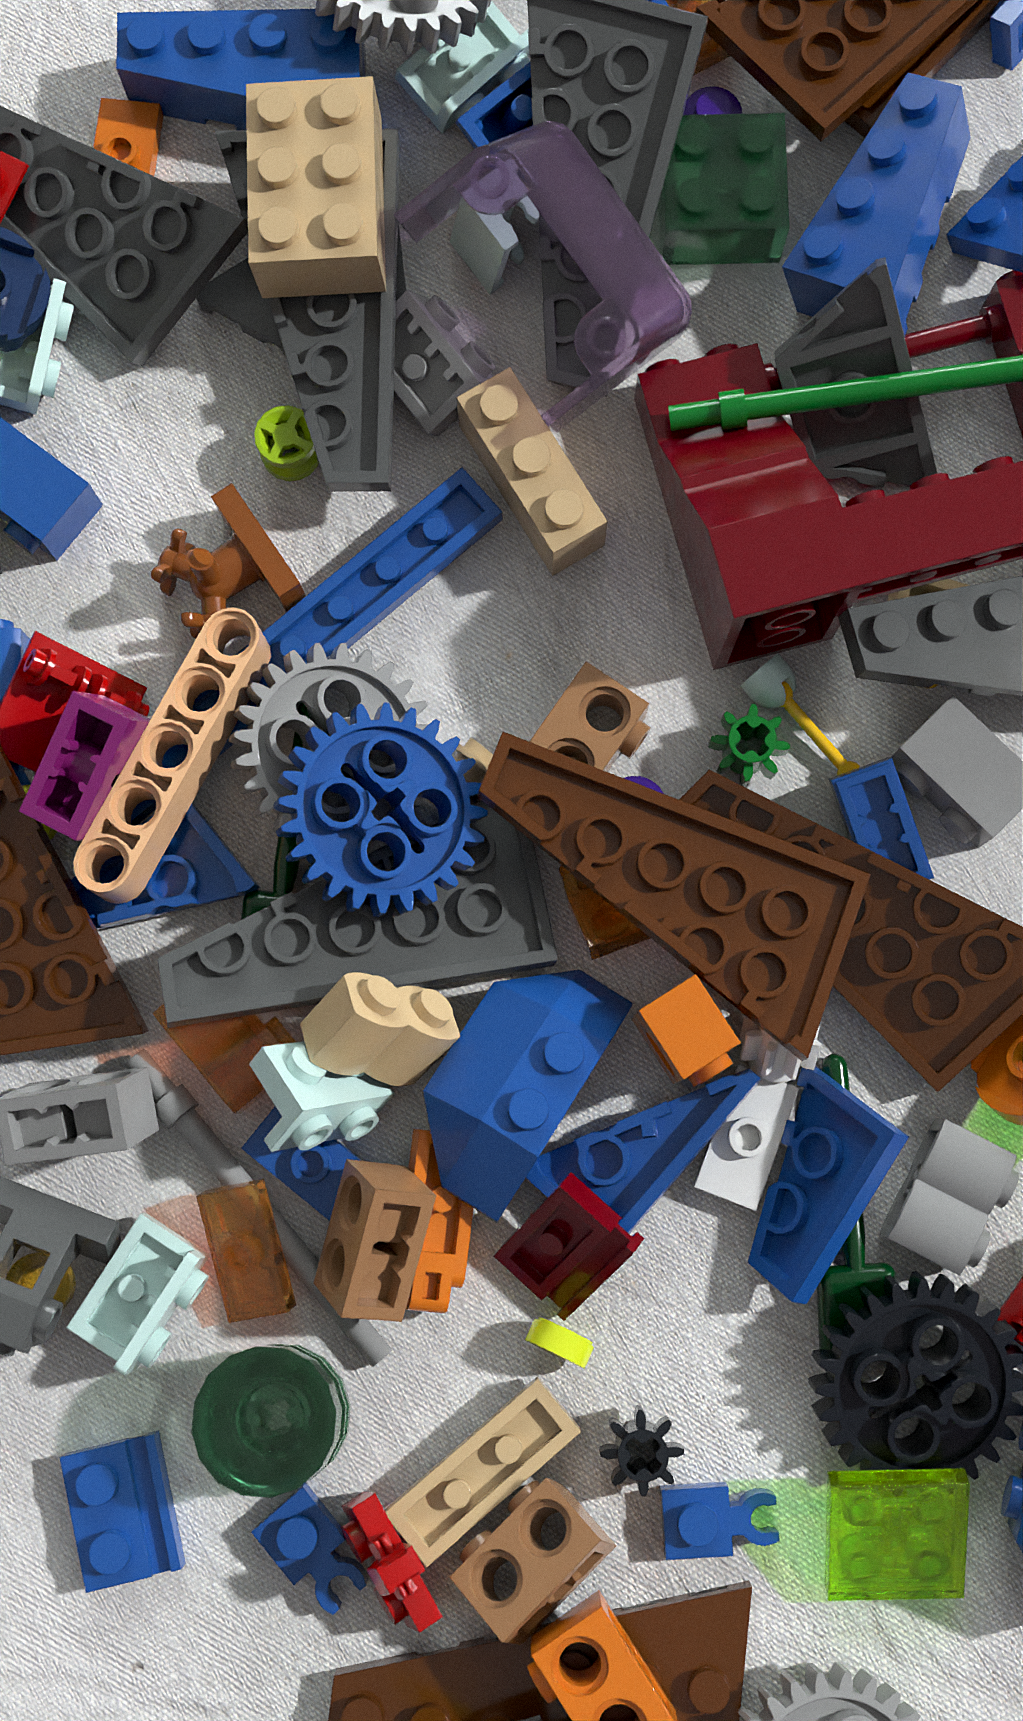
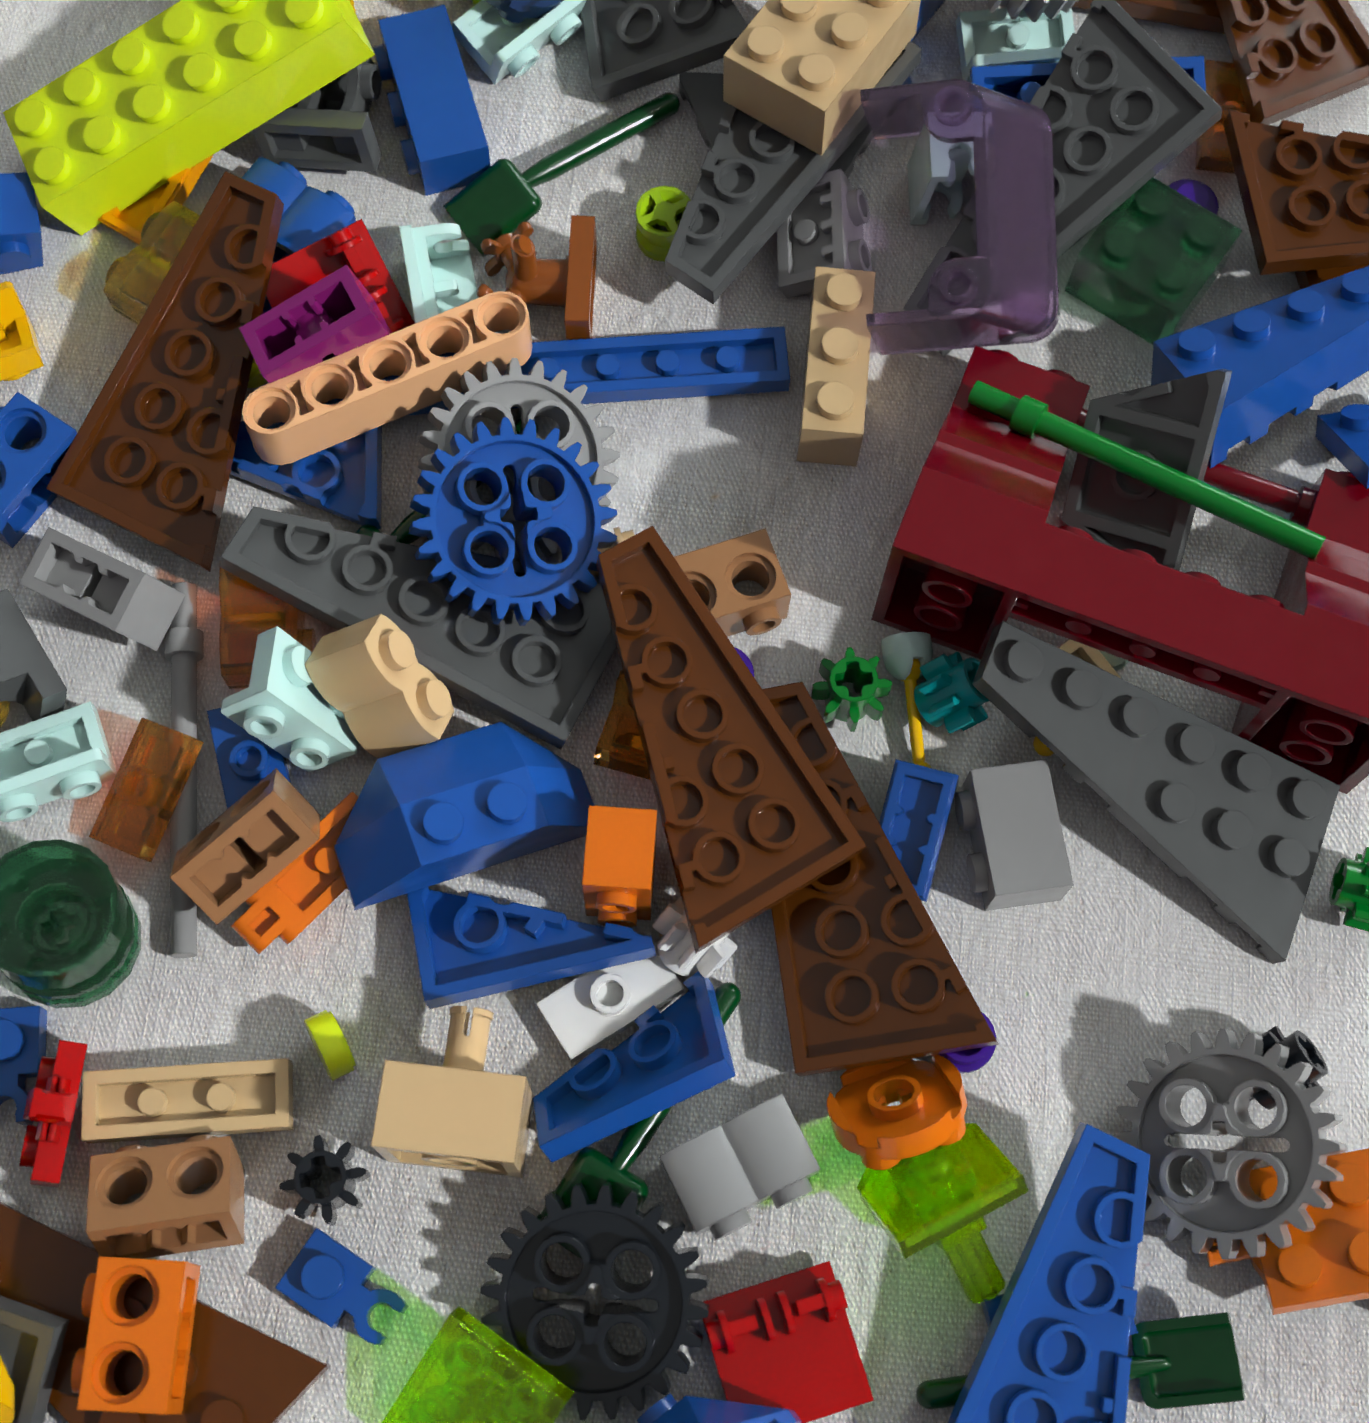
camera: 30 degrees right, 10 degrees down
(129, 517) = (506, 197): none -> dark green piece
(136, 632) = (437, 272): none -> light aqua hinge
(568, 1246) = (394, 966): dark red plate -> none
(711, 1325) = (456, 1111): none -> tan brick
(831, 690) = (949, 694): none -> teal gear

